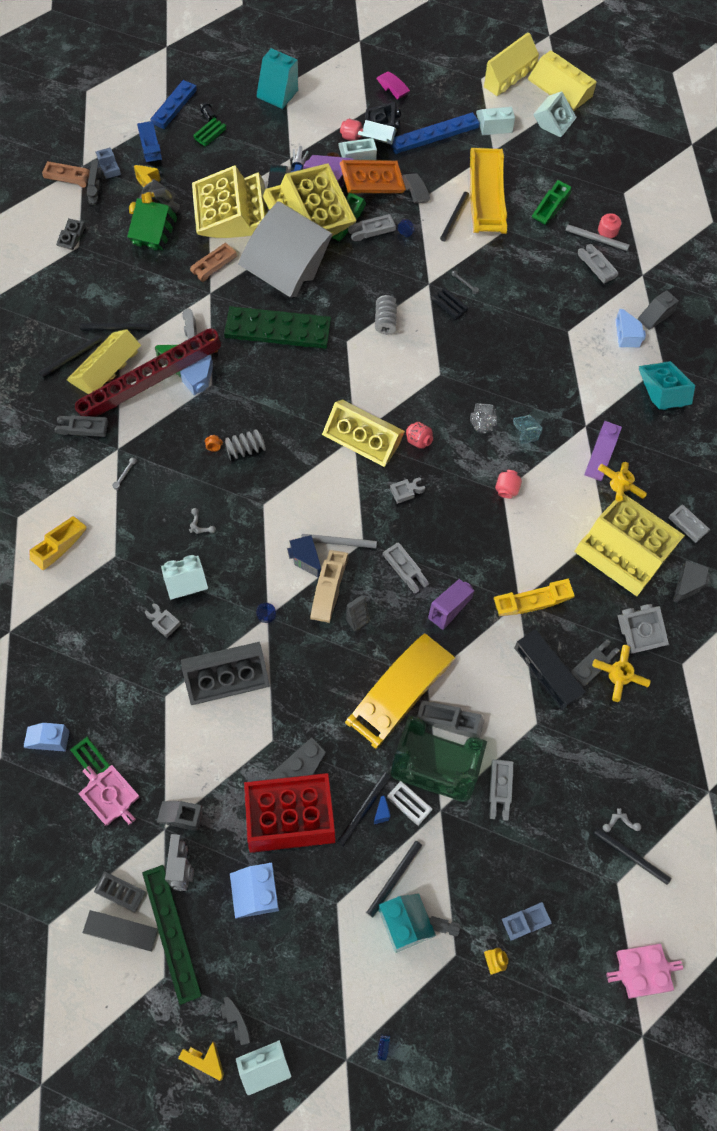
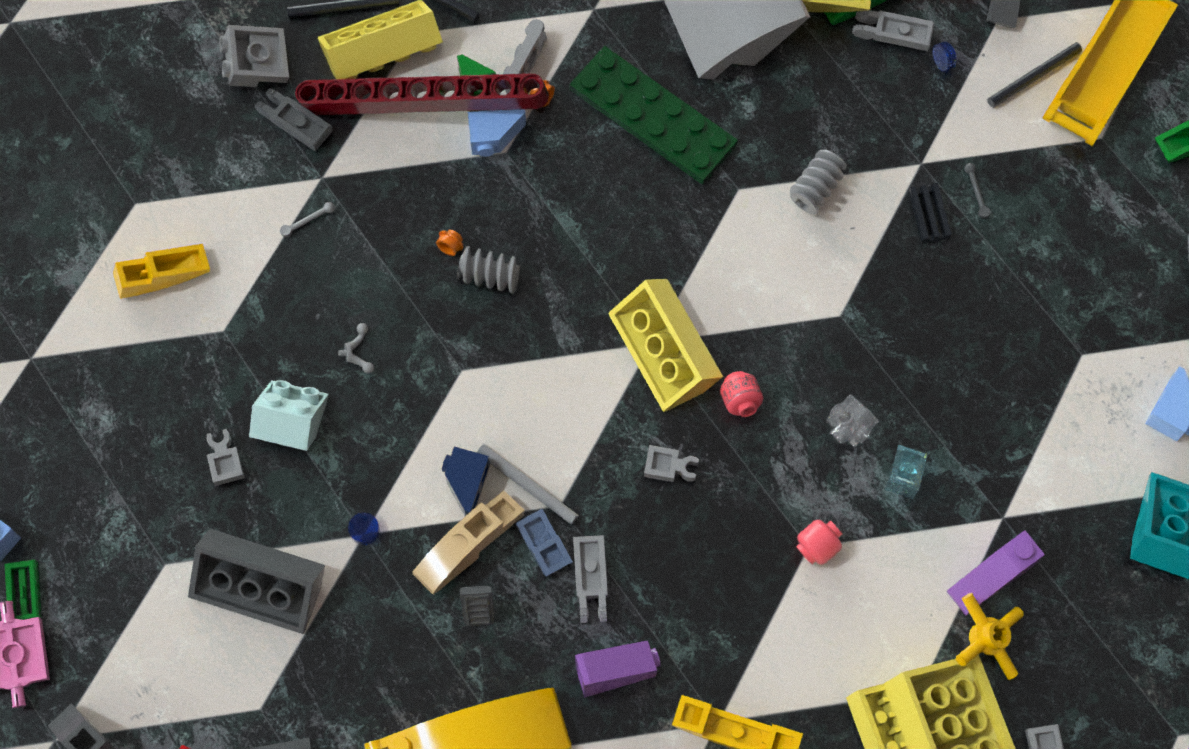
camera: 35 degrees right, 5 degrees up
(37, 404) = (254, 55): none -> light grey plate
(367, 565) = (543, 542): none -> sand blue slope

